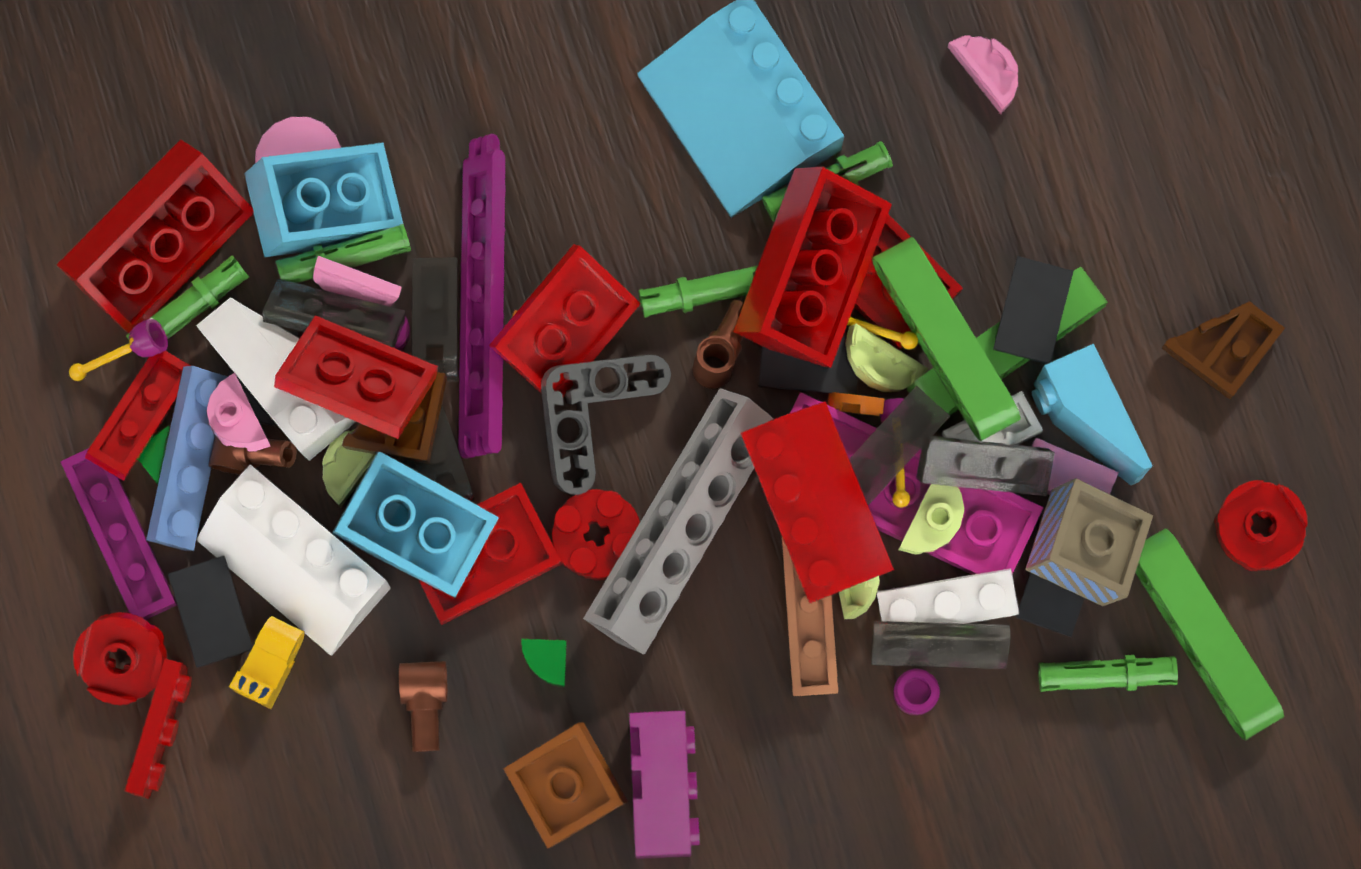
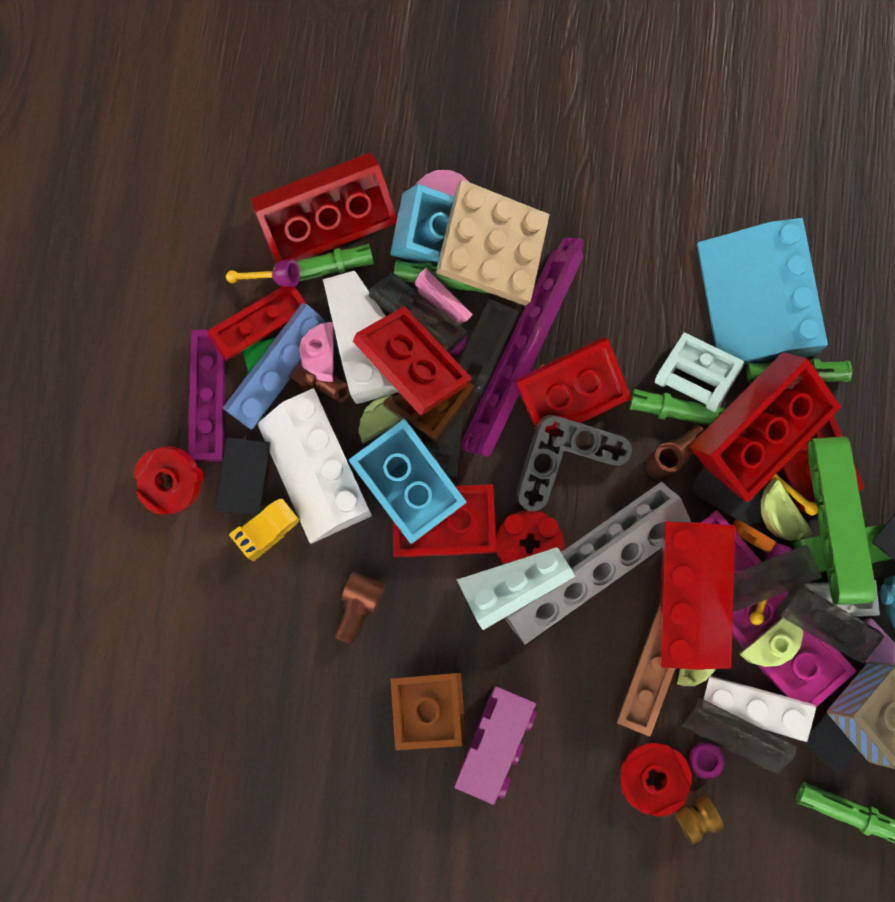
camera: 30 degrees right, 0 degrees up
(159, 729) = (169, 541): red plate -> none
(386, 187) = (493, 243): none -> tan plate
(546, 659) = (455, 615): green tile -> none
(599, 589) = (513, 585): none -> light aqua wing
(708, 221) = (704, 363): none -> light aqua plate
(892, 738) = (646, 797): none -> red plate
(935, 763) = (699, 819): none -> pearl gold wheel

